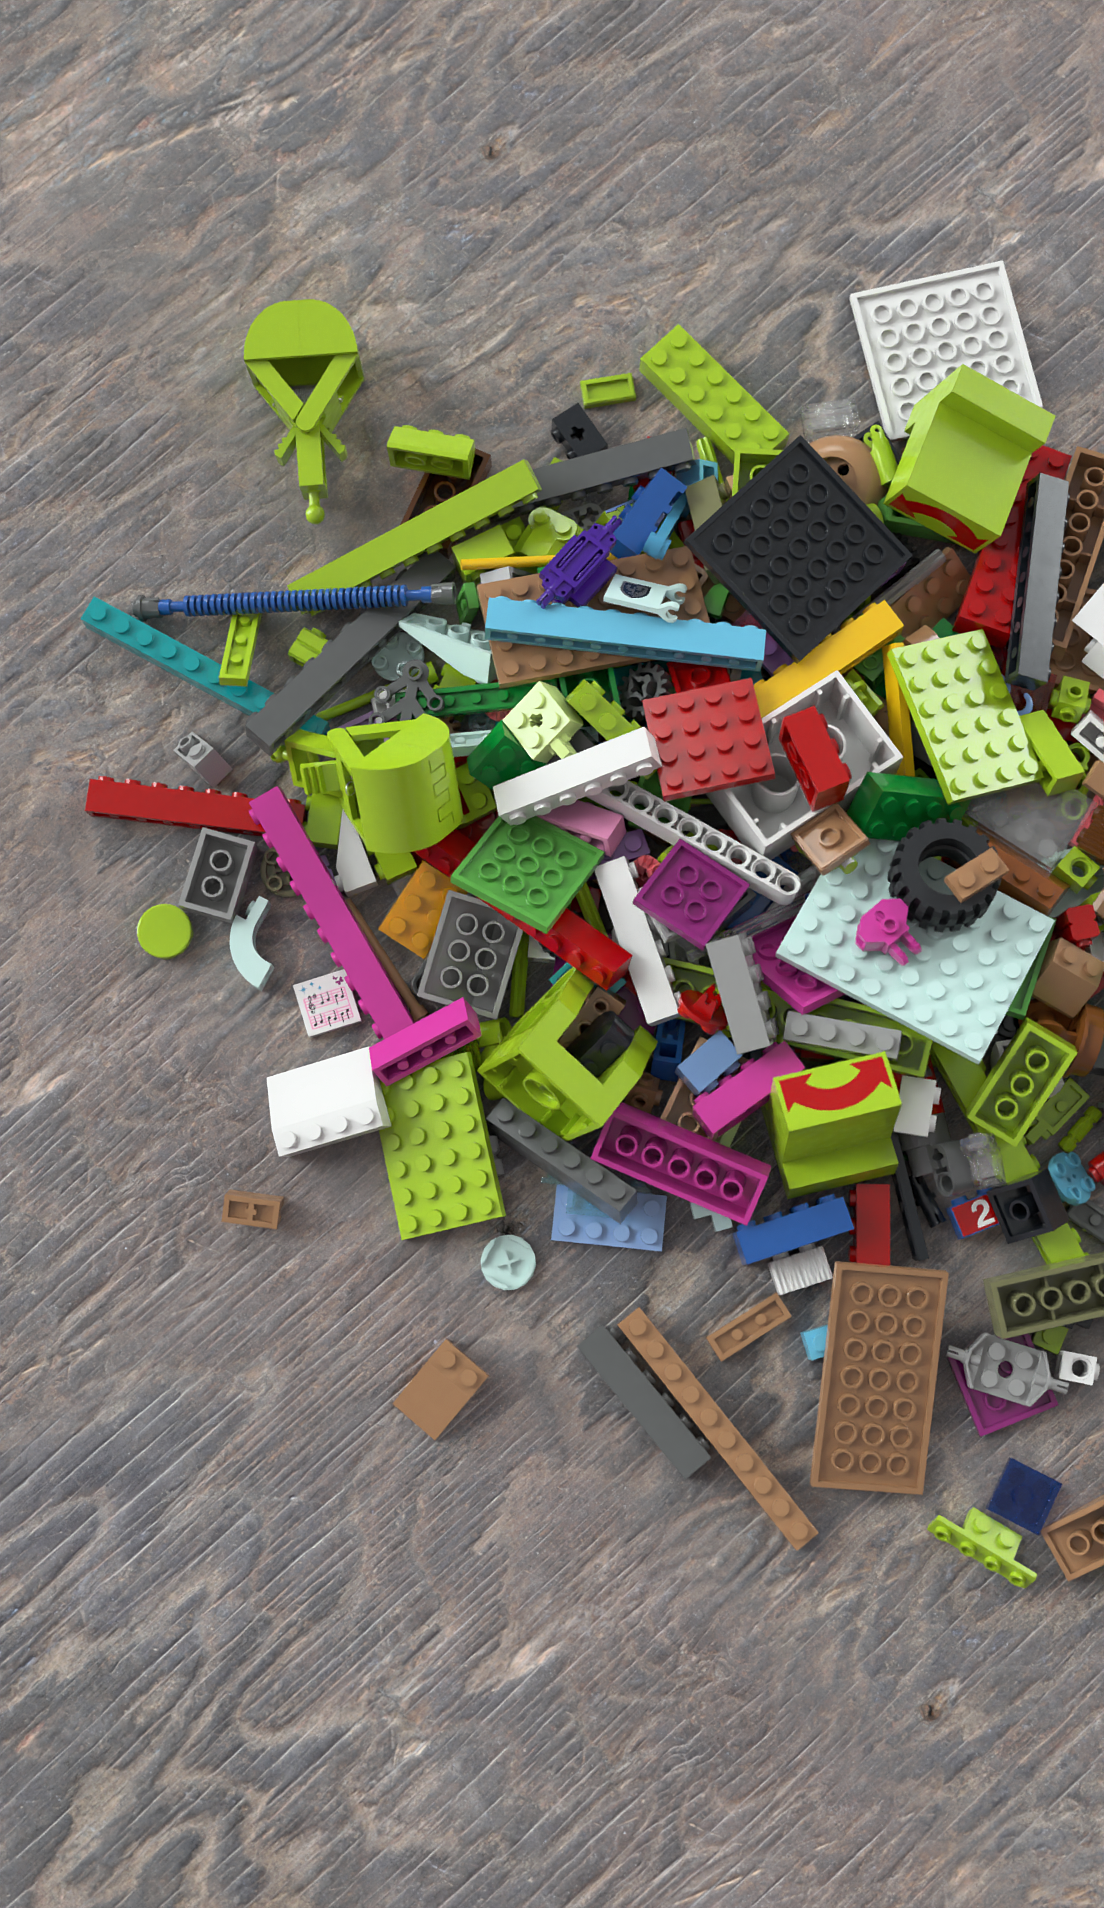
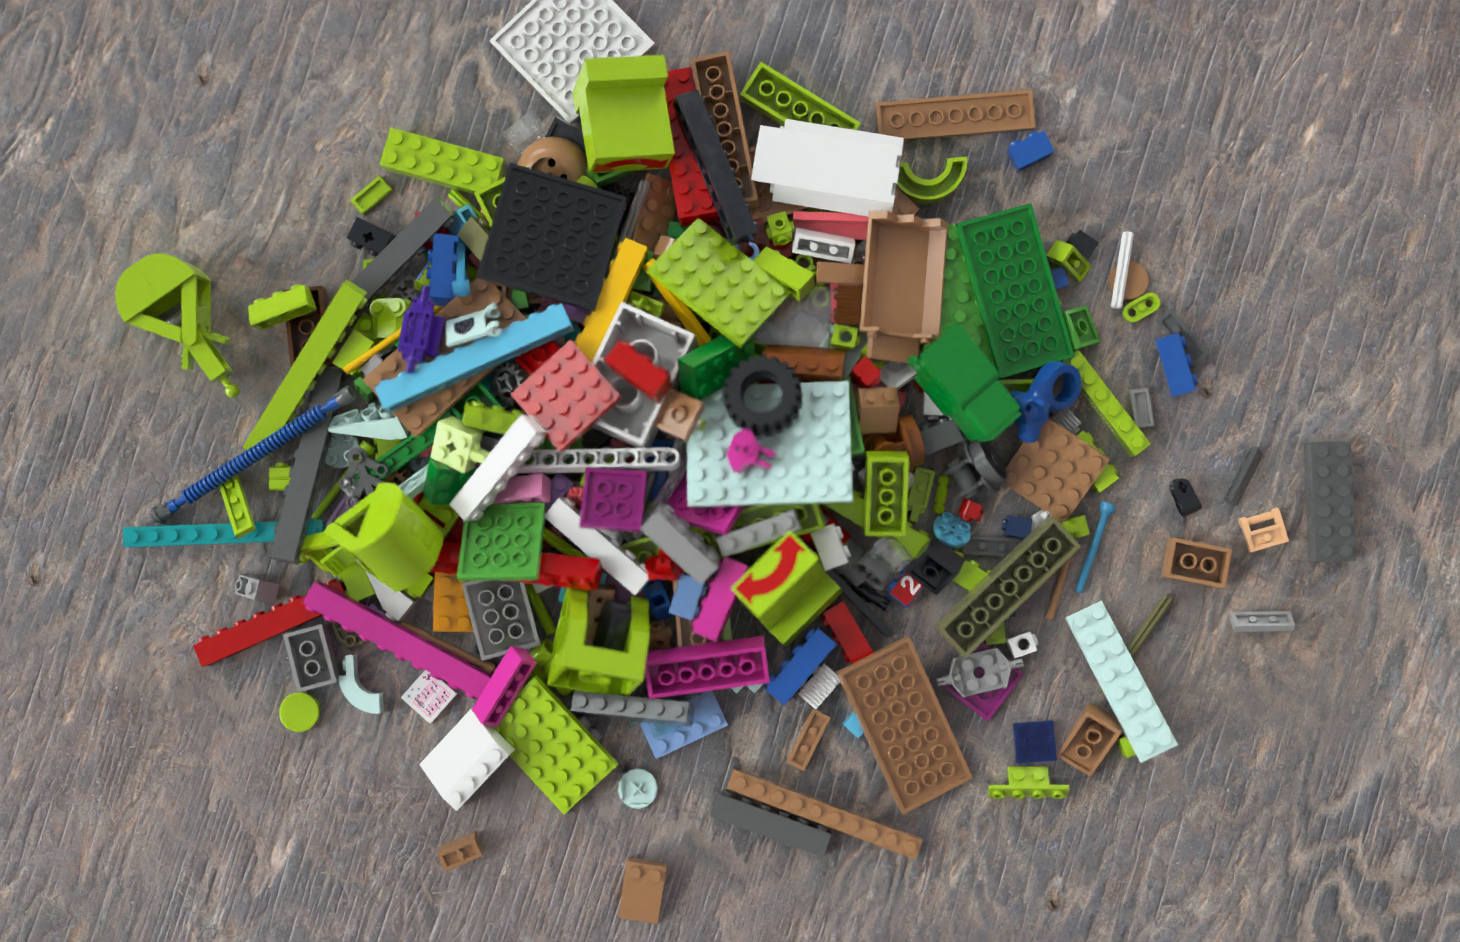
camera: 25 degrees left, 5 degrees up
(882, 455) = (570, 139): lime piece -> none
(976, 875) = (782, 387): medium nougat plate -> none

